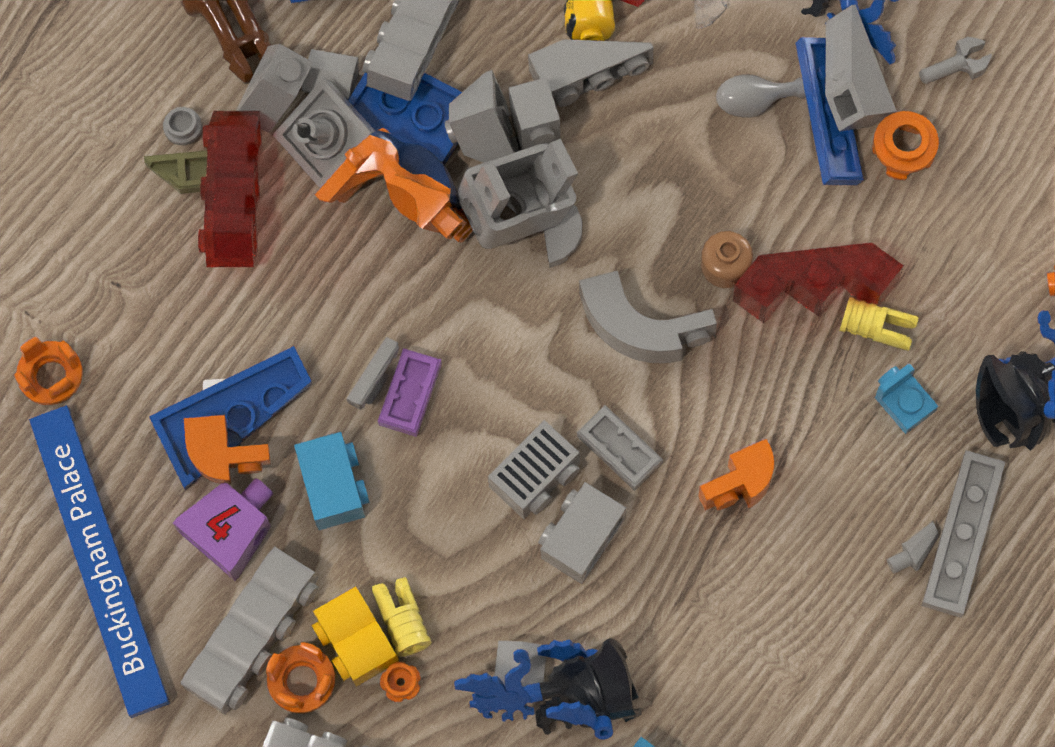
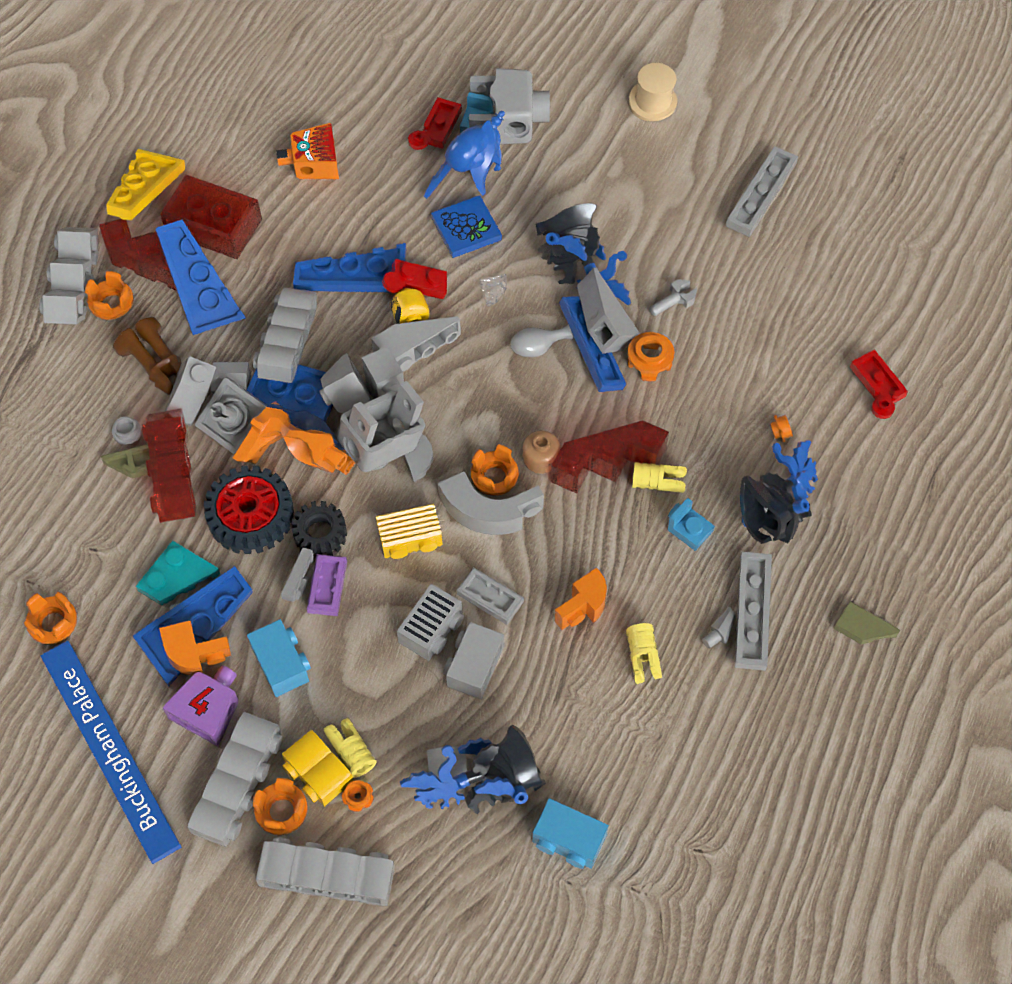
camera: 15 degrees left, 10 degrees down
(215, 339) = (174, 574): none -> teal wing
(319, 241) = (251, 529): none -> wheel
(413, 291) = (319, 514): none -> black tyre
(529, 339) = (409, 531): none -> yellow brick
(670, 256) = (499, 458): none -> orange piece
(805, 557) = (642, 649): none -> light yellow hinge

